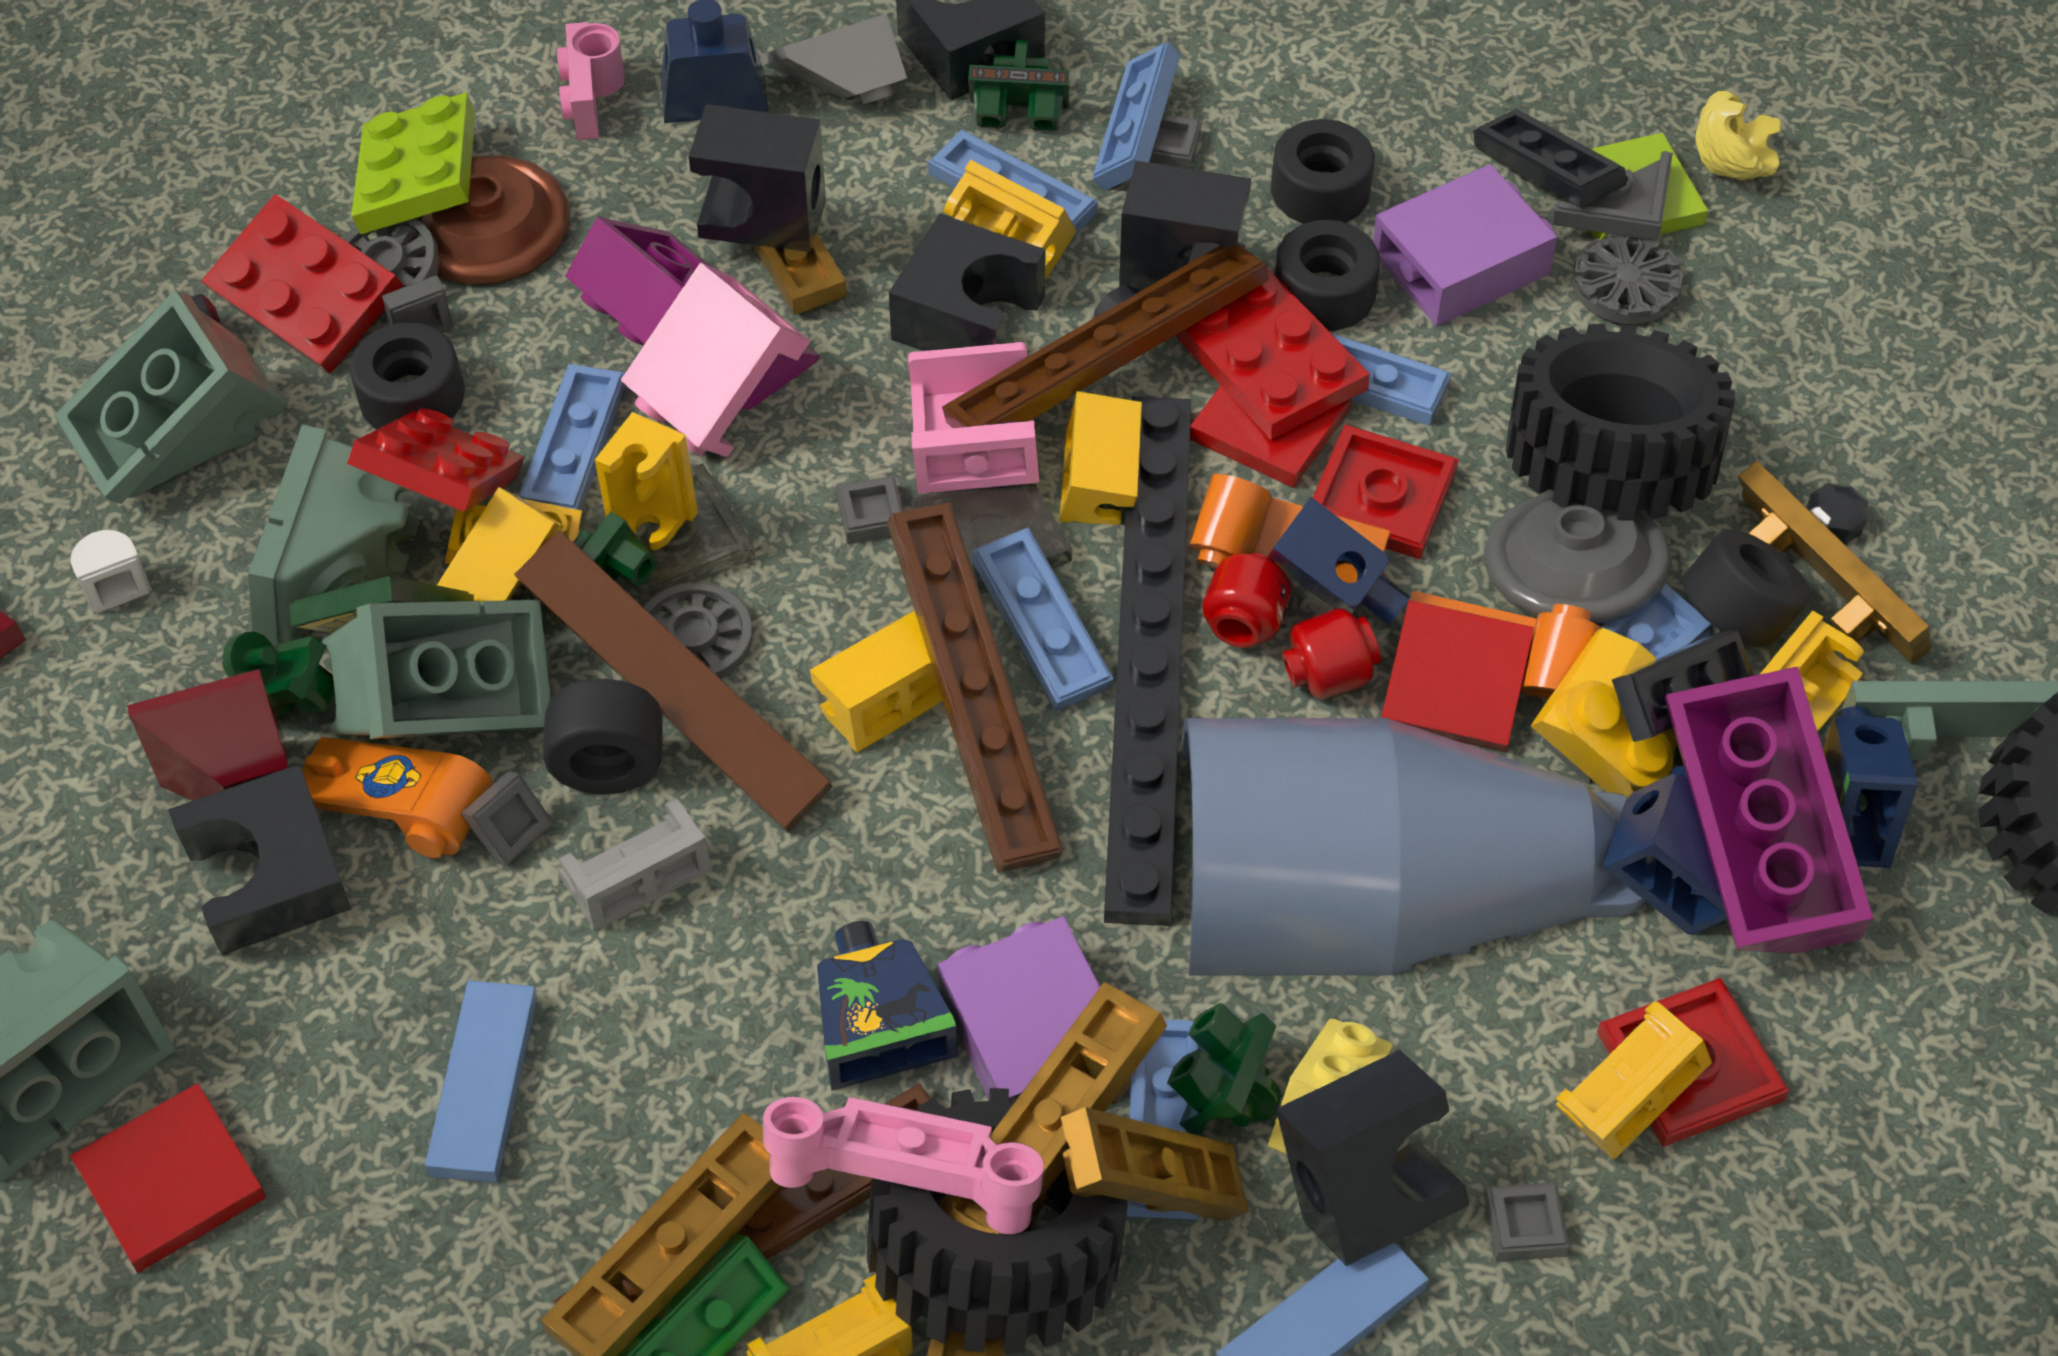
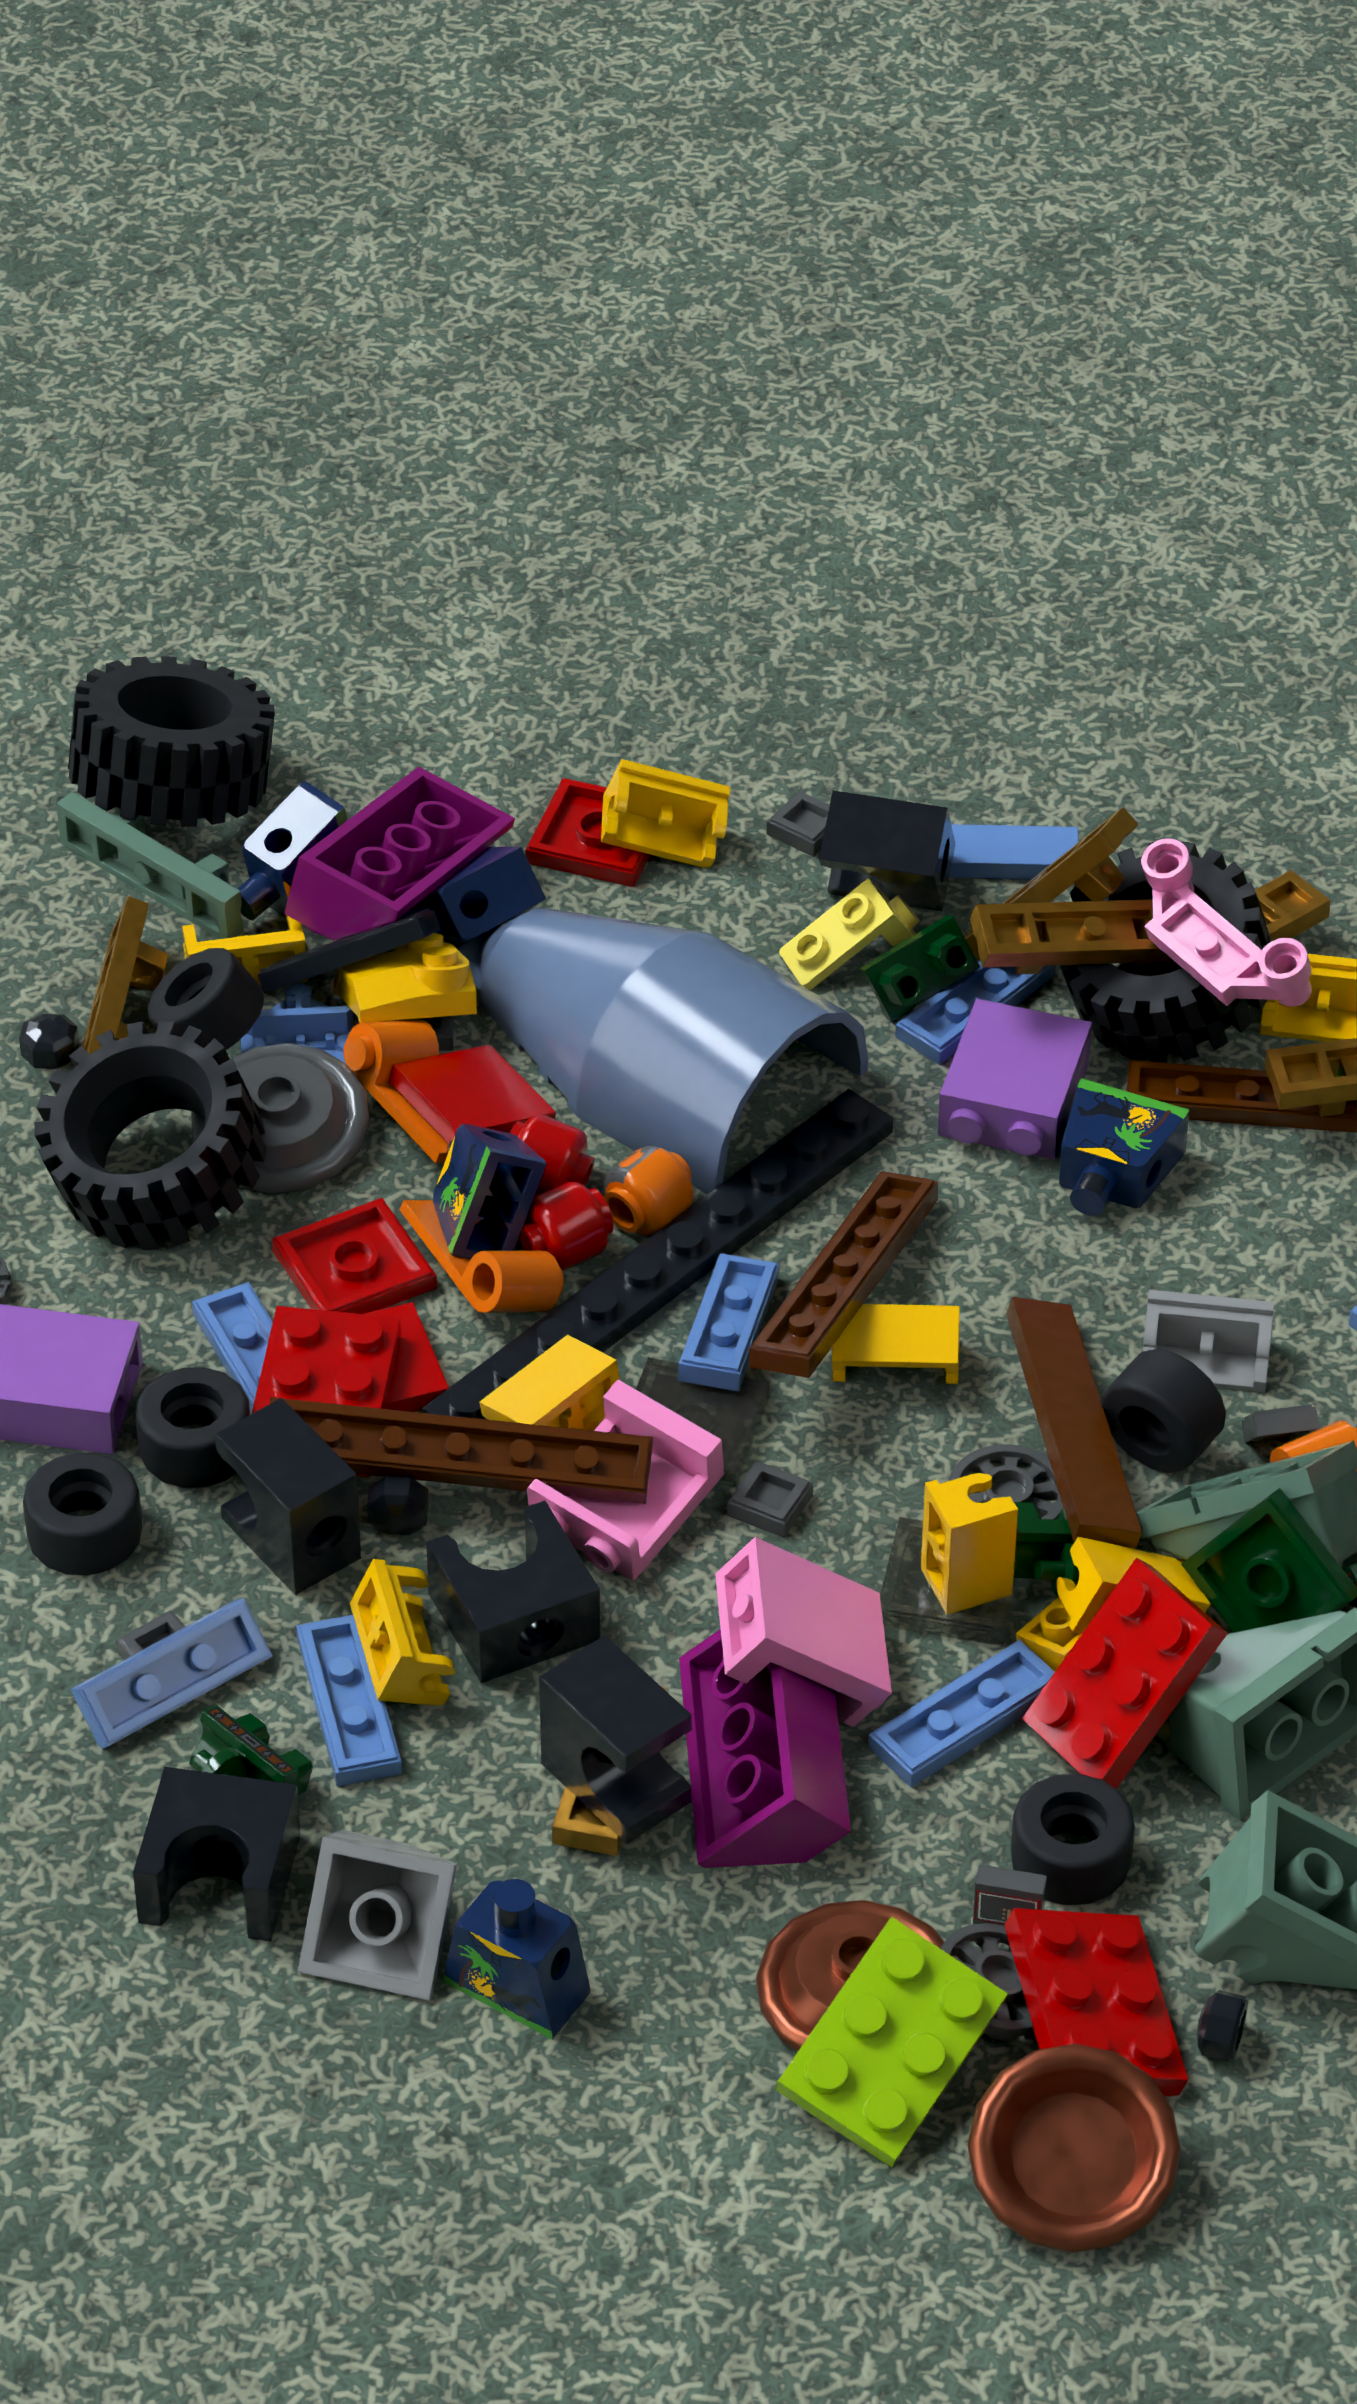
camera: 140 degrees left, 10 degrees down
(235, 169) = (1074, 2148): none -> copper piece
(593, 69) = (631, 2053): bright pink plate -> none
(1222, 679) = (648, 1190): none -> orange head

